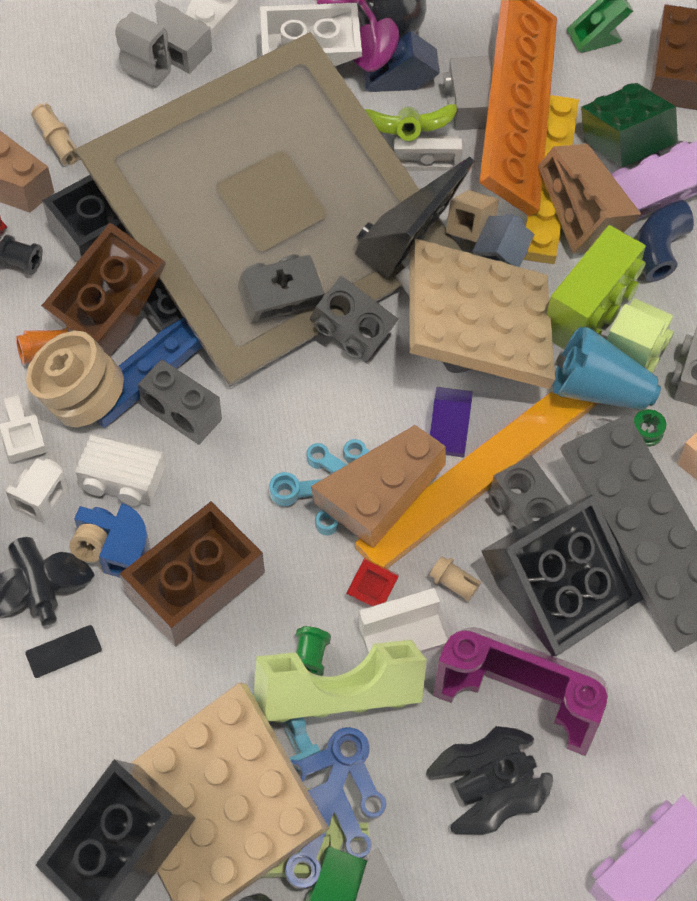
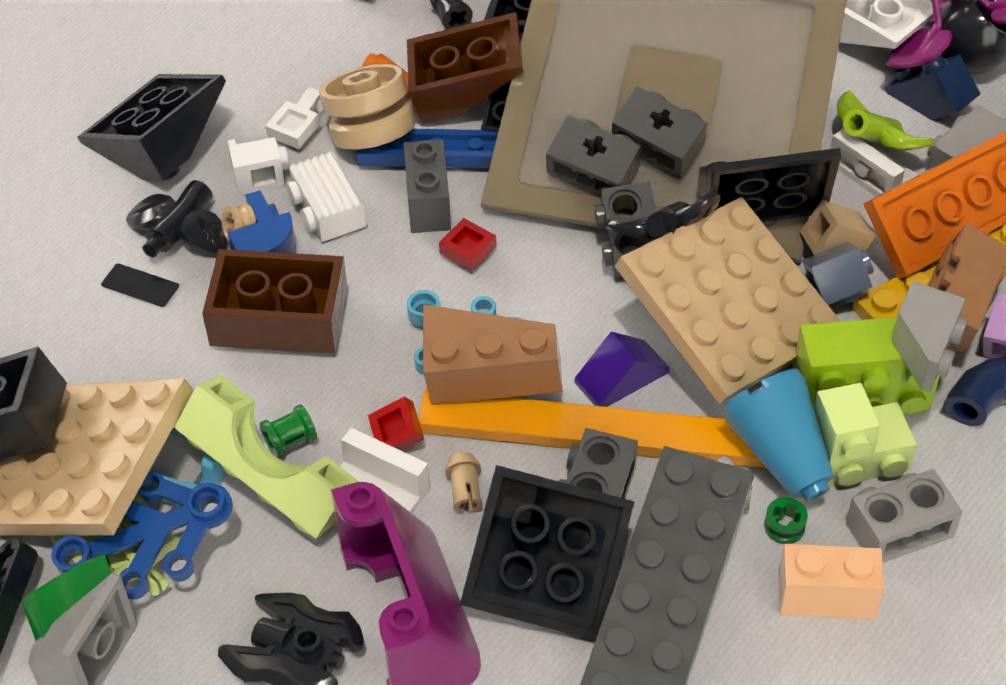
camera: 50 degrees right, 10 degrees down
(255, 419) = (467, 244): none -> red plate
(303, 232) = (664, 131): none -> dark grey brick
(392, 293) = (667, 218): none -> black plant
(631, 239) = (925, 330): none -> light grey slope

